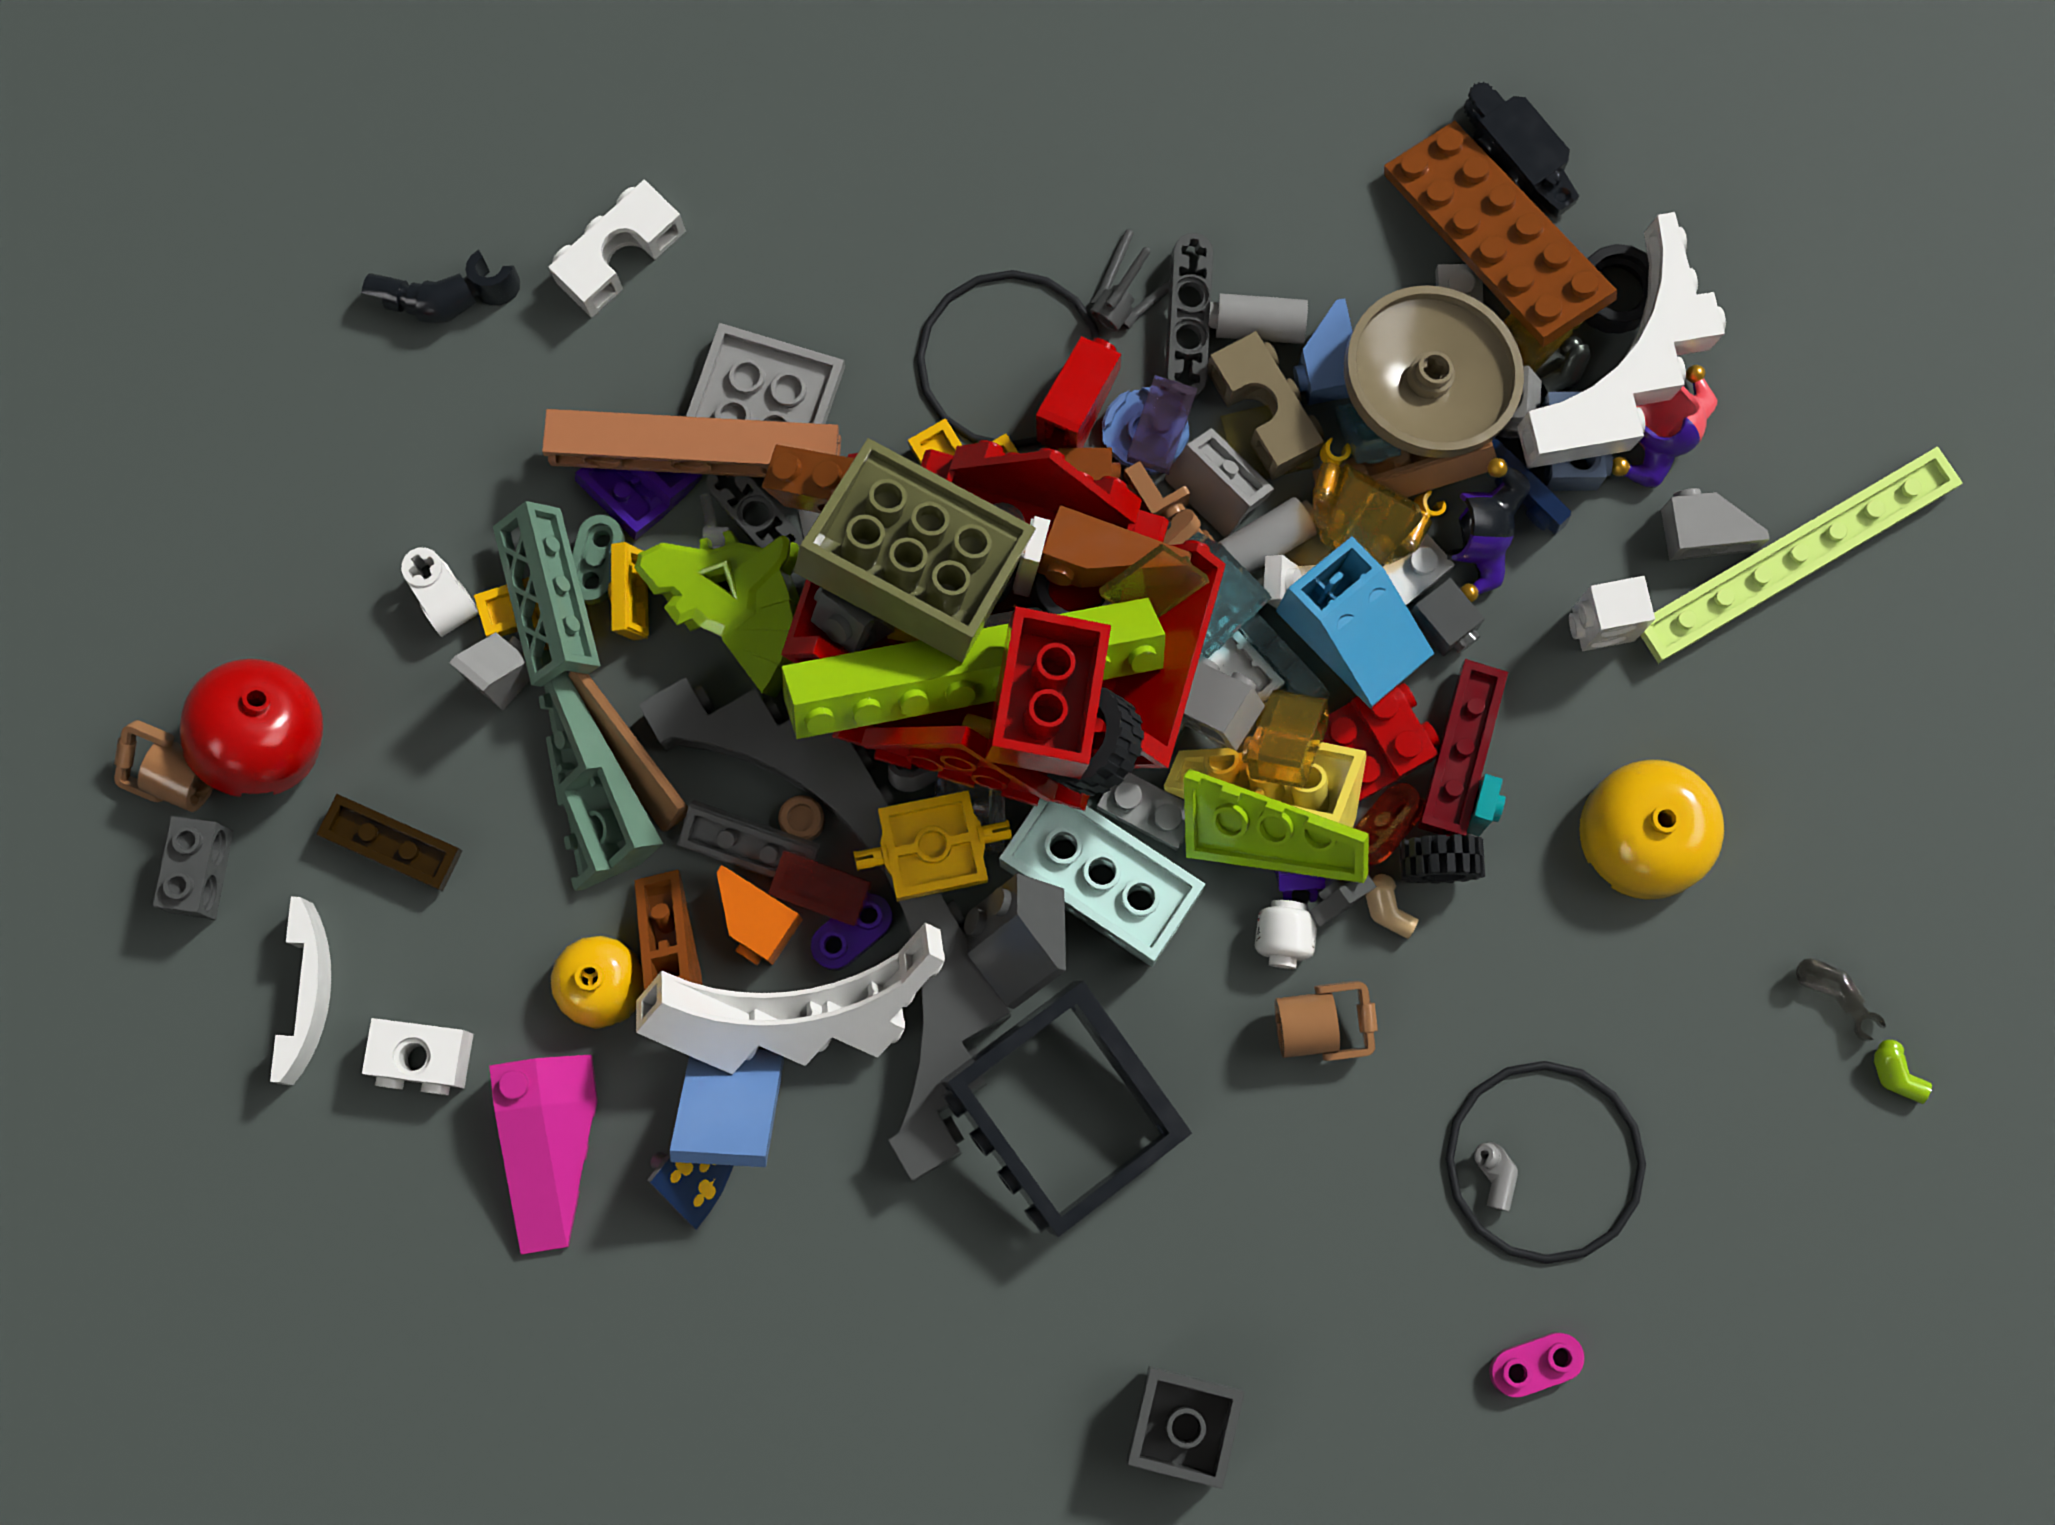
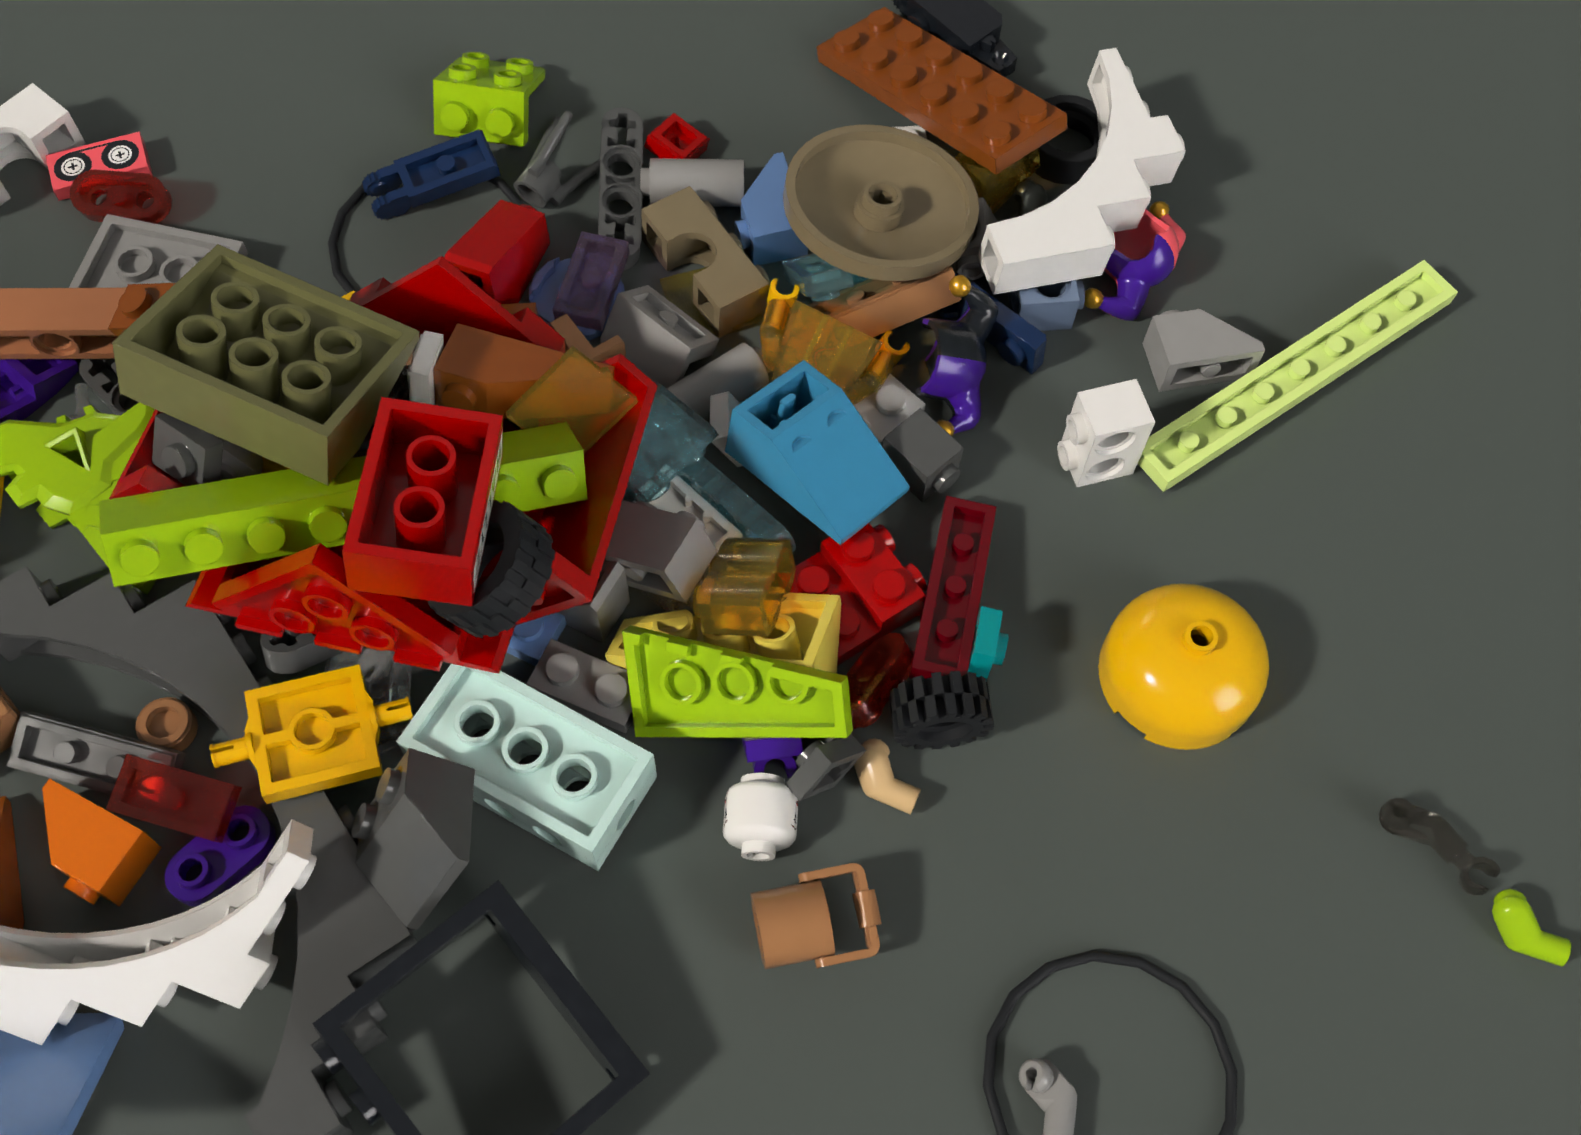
camera: 10 degrees left, 15 degrees down
(703, 262) = (120, 154): none -> tile
(730, 303) = (124, 193): none -> clear red plate
(1016, 293) = (431, 174): none -> dark blue hinge
(1065, 207) = (486, 97): none -> lime bracket
(1243, 269) = (676, 139): none -> red tile

